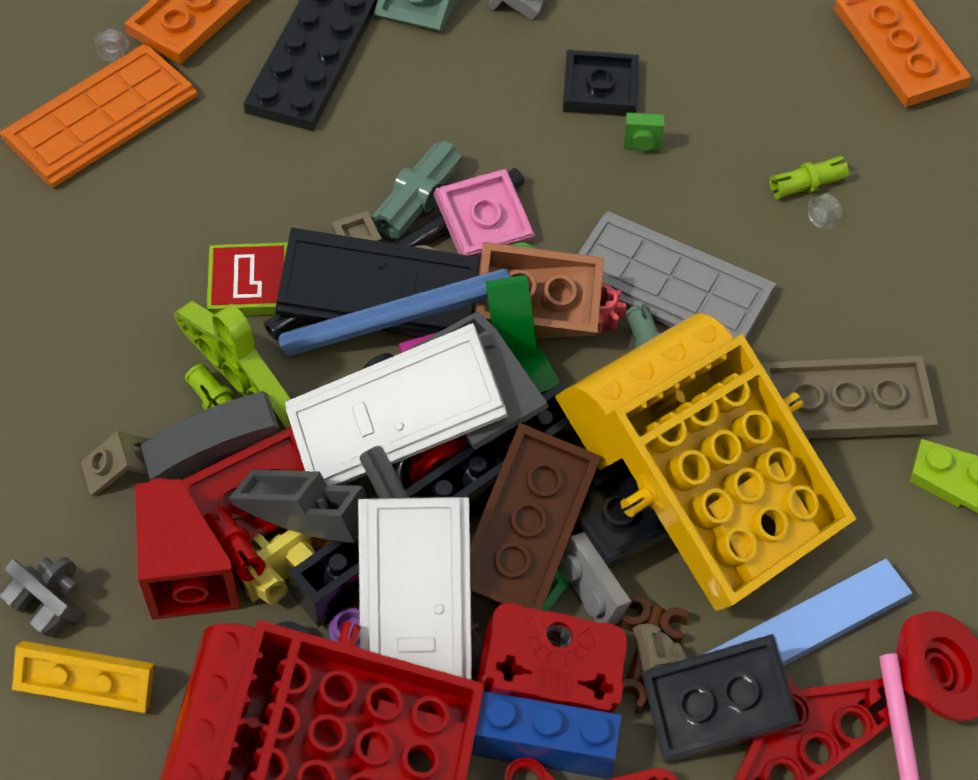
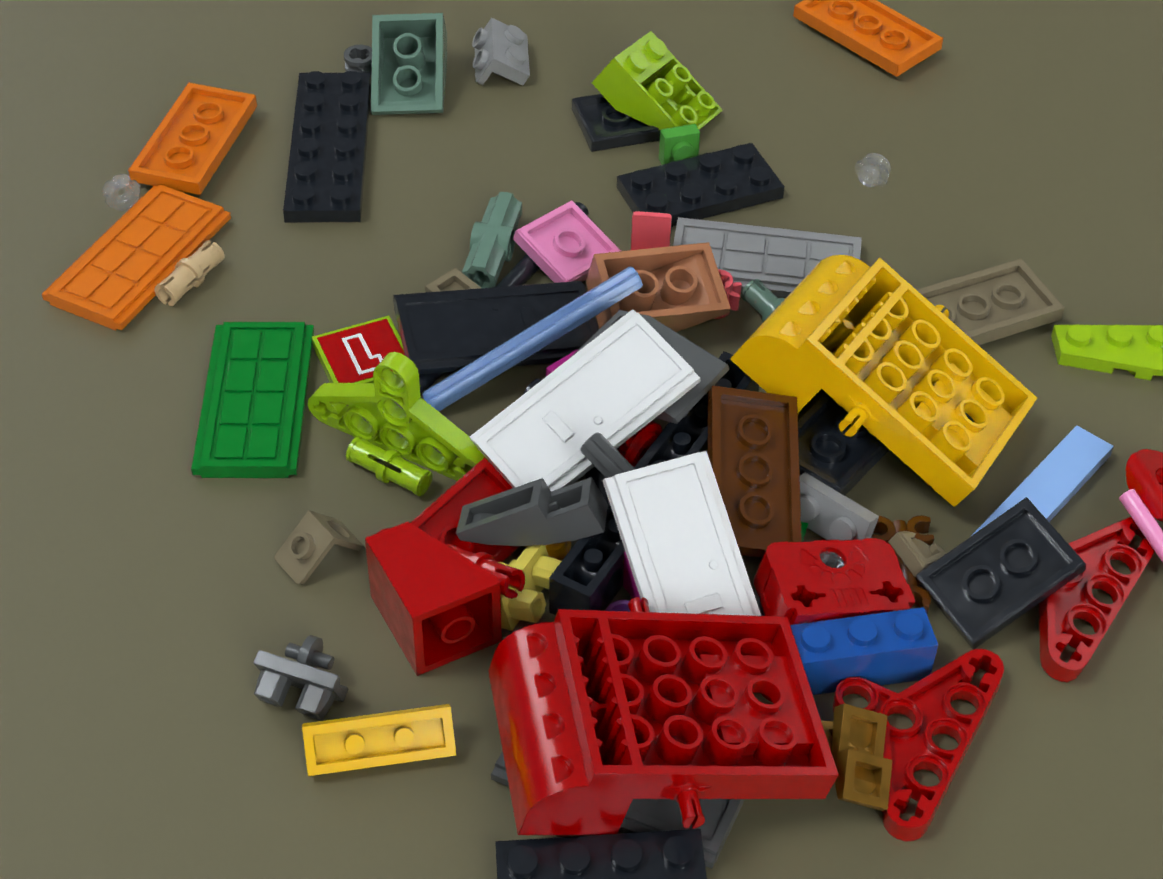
camera: 20 degrees left, 10 degrees down
(134, 146) = (189, 273): none -> tan pin
(134, 295) = (254, 401): none -> green piece
(209, 437) = (405, 489): dark grey slope -> none
(512, 314) = (648, 295): green slope -> none
(564, 229) = (650, 230): none -> coral bracket
(646, 181) = (703, 184): none -> black plate
(664, 74) = (655, 87): none -> lime slope
(809, 177) = (844, 148): lime pin -> none

